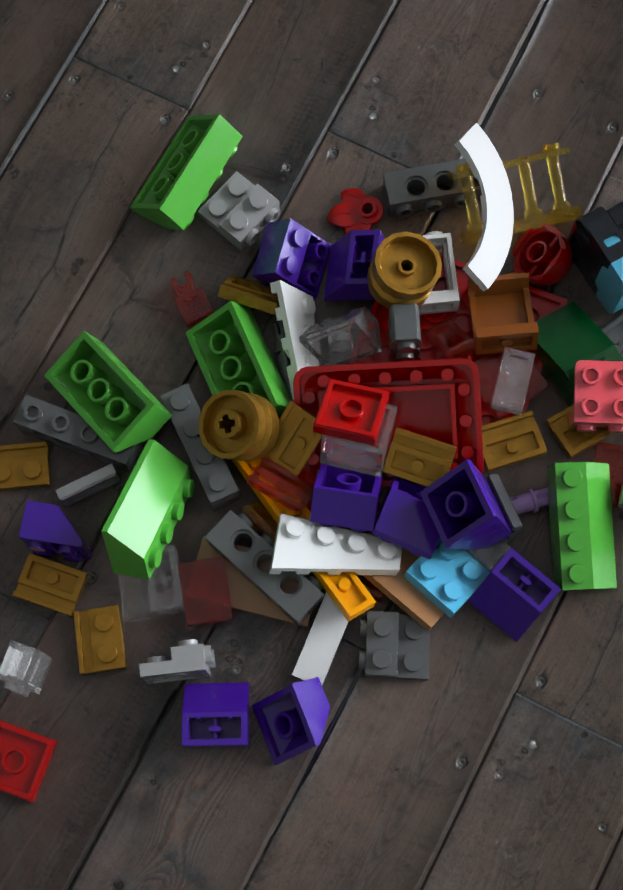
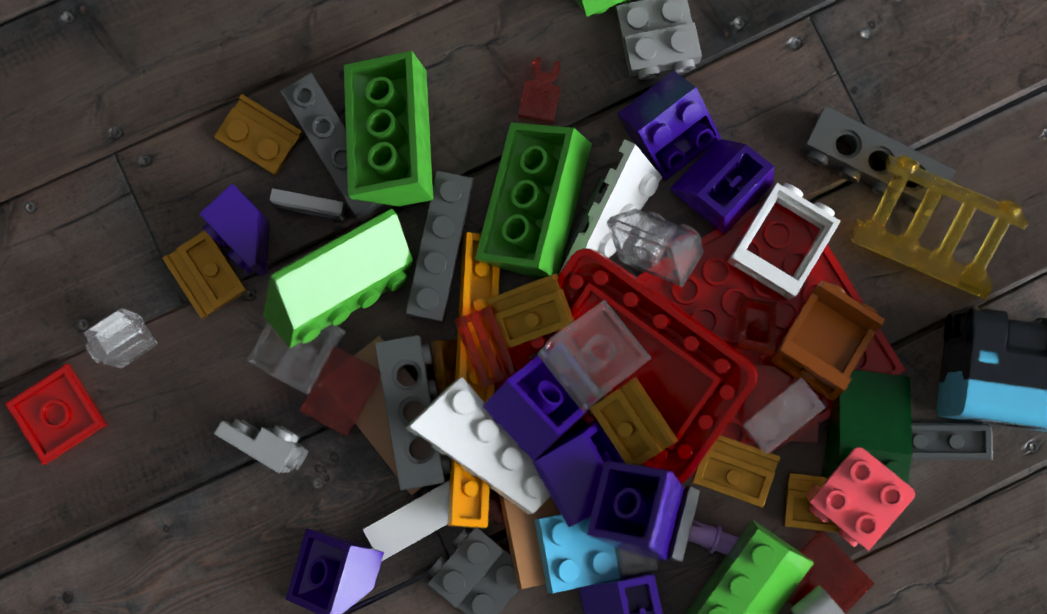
camera: 30 degrees right, 10 degrees up
(100, 640) = (213, 360): pearl gold plate -> none
(216, 716) = (263, 515): dark purple slope -> none
(238, 425) = (485, 261): pearl gold wheel -> none
(249, 294) = (600, 130): pearl gold plate -> none
(351, 212) = (765, 119): red plate -> none
(351, 412) = (601, 332): red tile -> none
(404, 270) = (781, 226): pearl gold wheel -> none
(404, 332) = (716, 288): dark grey brick -> none
(496, 207) = (906, 229): white tile -> none
(543, 255) = (915, 309): red cylinder -> none

